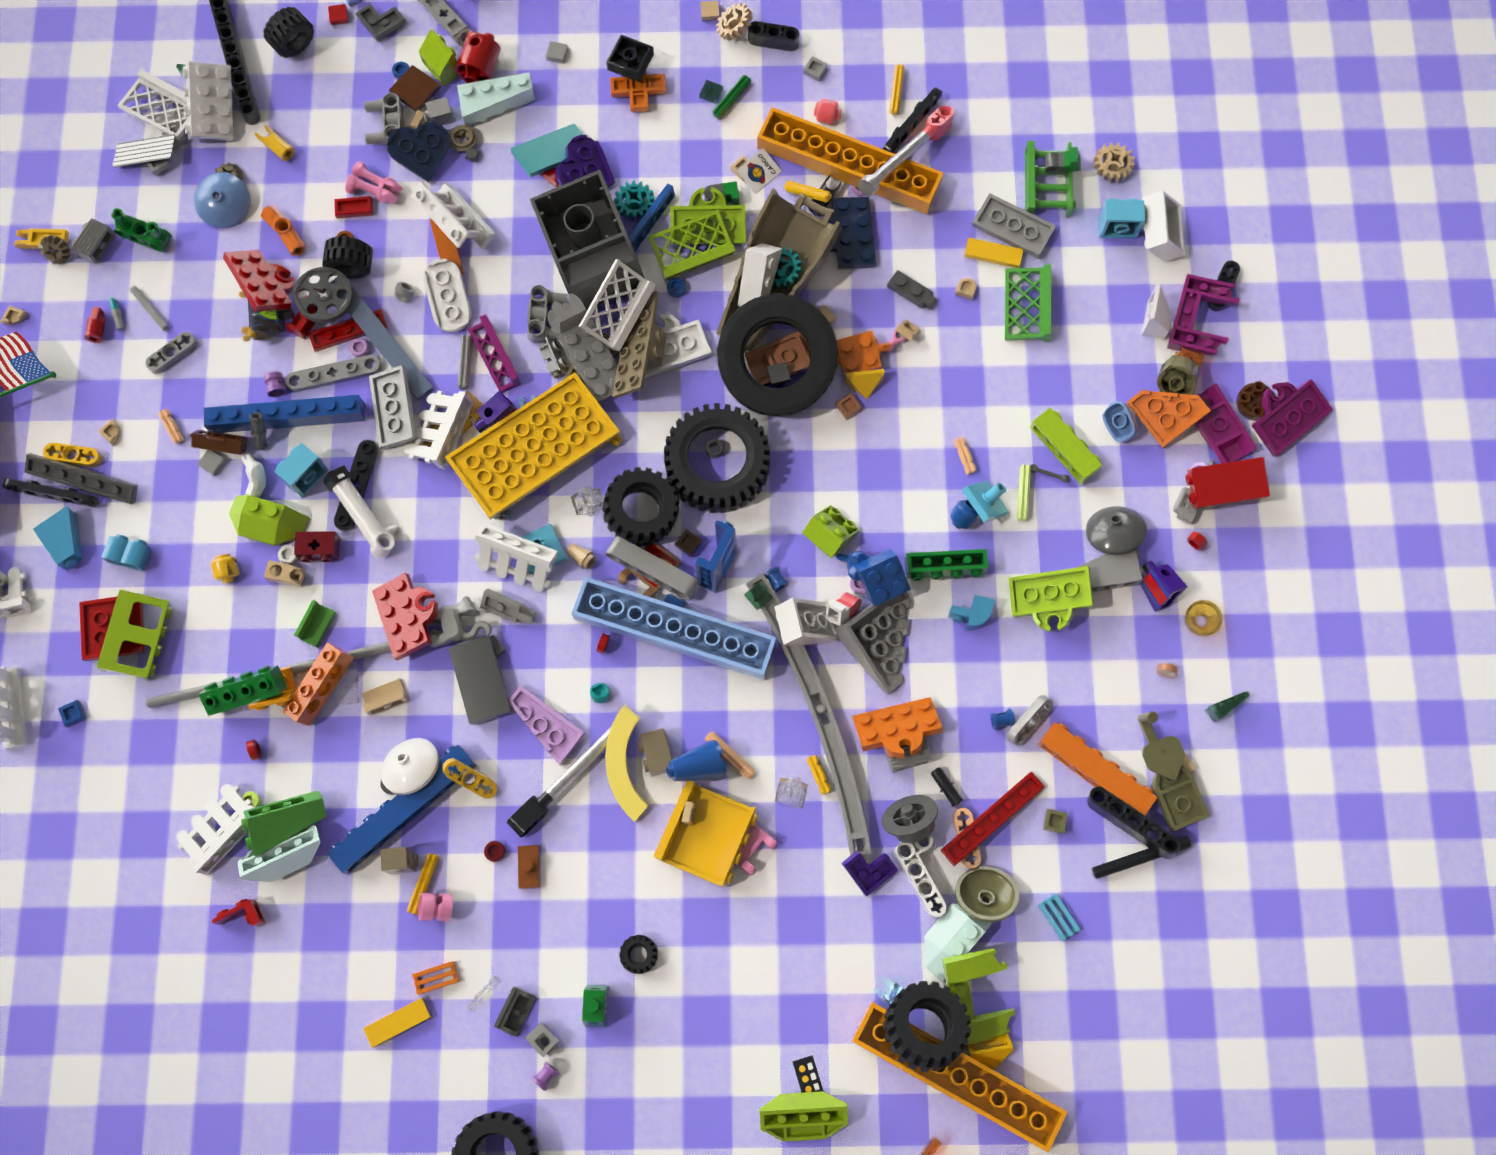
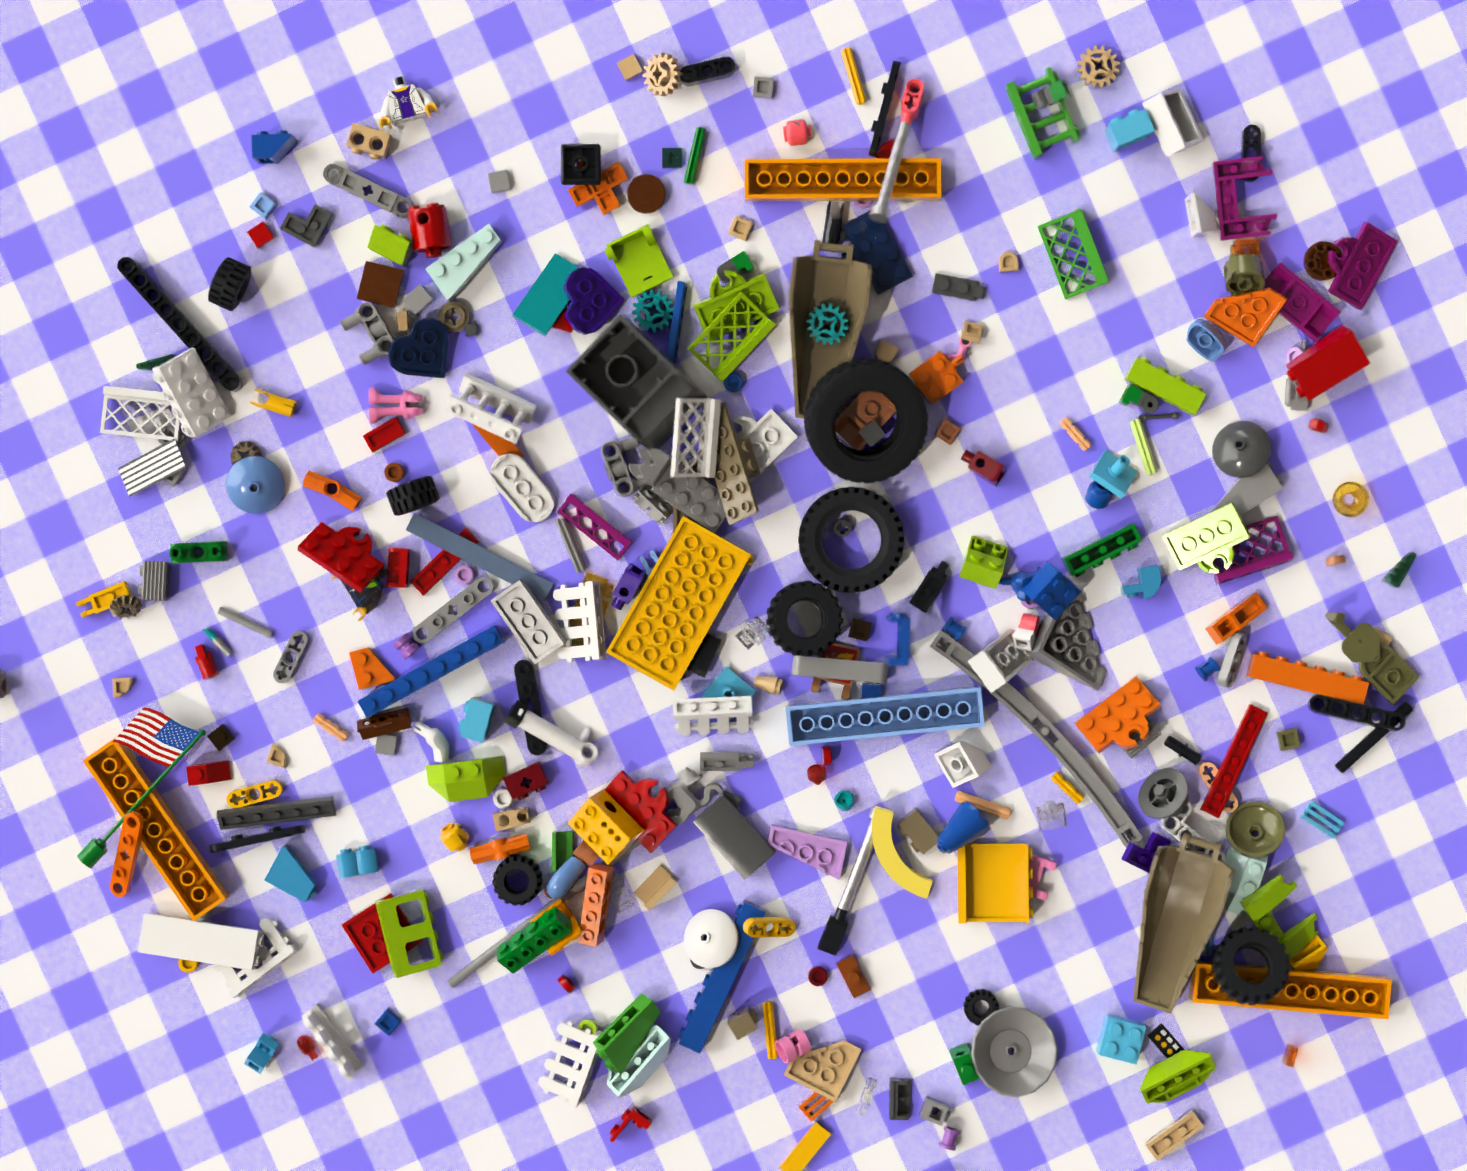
camera: 30 degrees left, 15 degrees up
(41, 417) = (208, 772): none -> red slope
(72, 394) = (221, 737): none -> dark brown plate
(231, 389) = (369, 669): none -> orange wing
(246, 623) = (512, 896): none -> black tyre
(258, 431) = (418, 700): dark grey pin -> none
(260, 597) = (499, 849): none -> orange piece
(311, 642) = (568, 873): none -> medium blue piece
(323, 286) = (402, 550): dark grey wedge -> none
(361, 617) = (605, 831): none -> yellow piece
(399, 69) = (354, 269): blue tile -> none
(404, 292) = (479, 500): light grey tile -> none
(456, 946) = (825, 1068): none -> tan plate
(532, 505) = (704, 655): none -> black slope
(586, 656) = (817, 773): none -> clear red tile
(642, 156) = (637, 259): none -> lime door
(671, 1005) = (1032, 1054): none -> light grey dish
(675, 108) = (646, 194): none -> reddish brown tile
(689, 813) = (971, 871): tan tile -> none
(728, 704) = (962, 762): none -> white slope
(758, 271) = (812, 345): white wedge -> none
(758, 596) = (947, 655): clear green tile -> none
(759, 170) = (758, 225): white sticker -> none
(763, 1050) = (1120, 1038): none -> medium azure brick
(770, 532) = (930, 587): none -> black hinge
(810, 192) = (816, 231): yellow axle -> none
(864, 381) = (954, 403): yellow slope -> none
(869, 447) = (991, 471): none -> dark red torso
(876, 940) = (1178, 917): none -> dark tan windscreen
(993, 253) = (1019, 214): yellow tile -> none
(1013, 225) = (1027, 177): light grey plate -> none
(1037, 448) = (1146, 402): none -> leg
(1049, 683) = (1236, 618): none -> orange slope
(1089, 642) = (1261, 563): none -> magenta fence
(1161, 585) = (1301, 485): dark purple torso -> none

